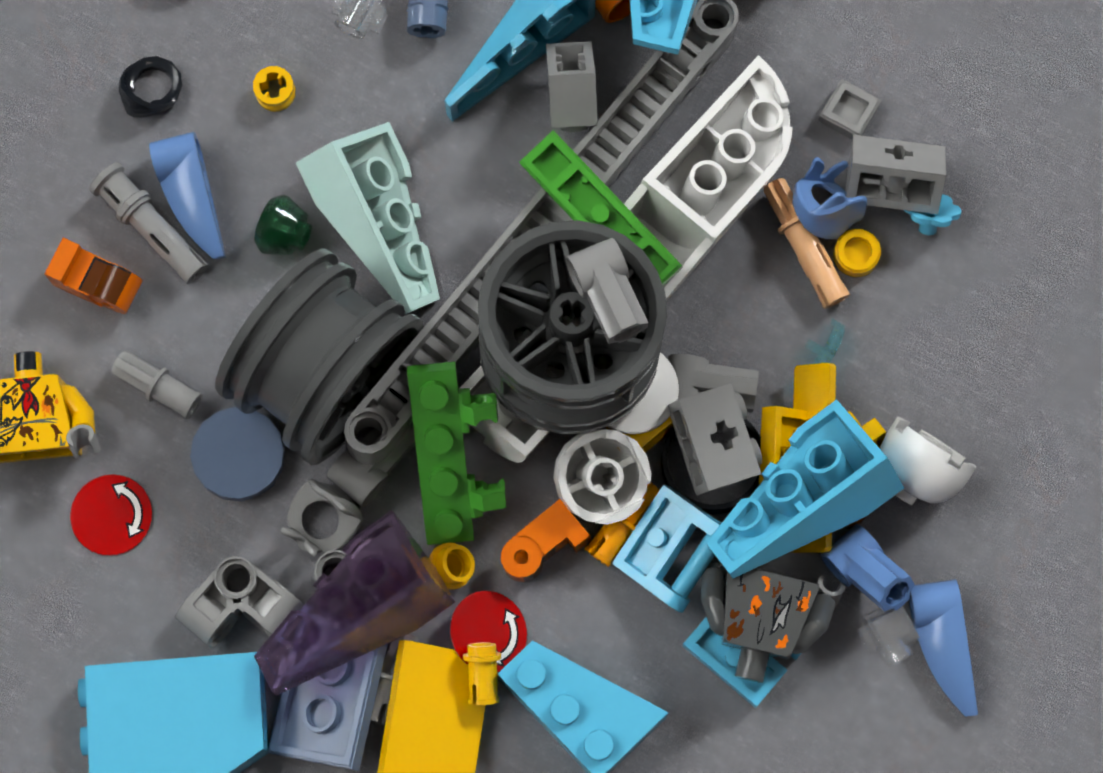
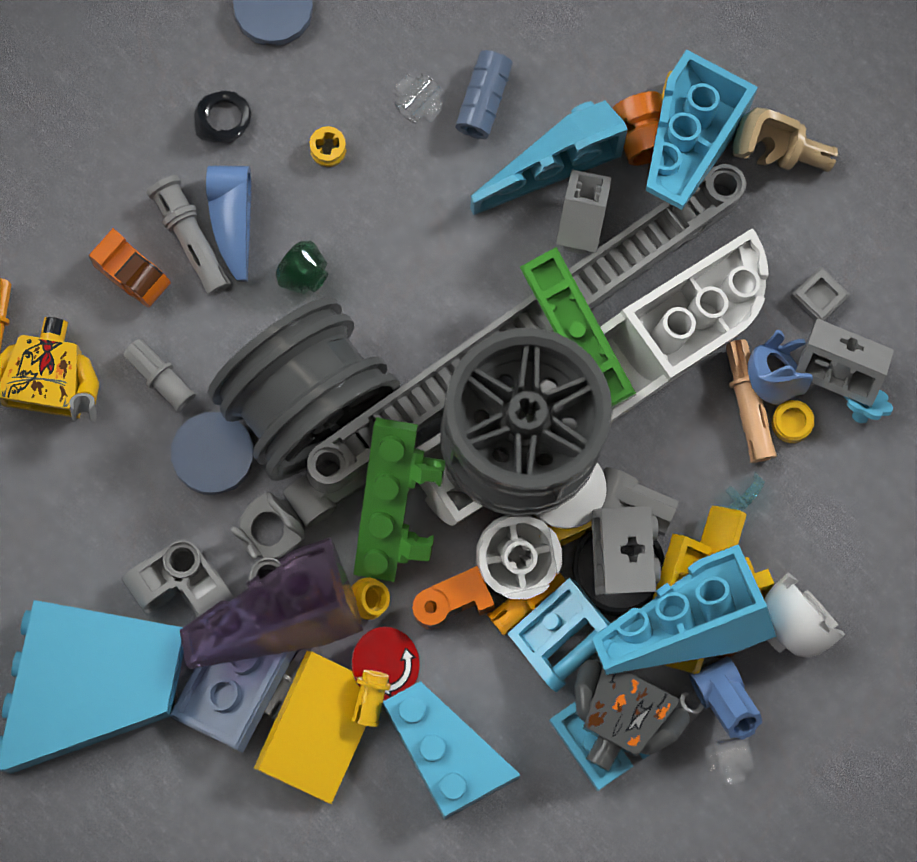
camera: 10 degrees right, 0 degrees up
(111, 514) = (90, 476): red sticker -> none
(367, 200) = (381, 263): light aqua wedge -> none
(603, 279) = (561, 387): light grey piece -> none
(941, 626) = (775, 777): medium blue piece -> none

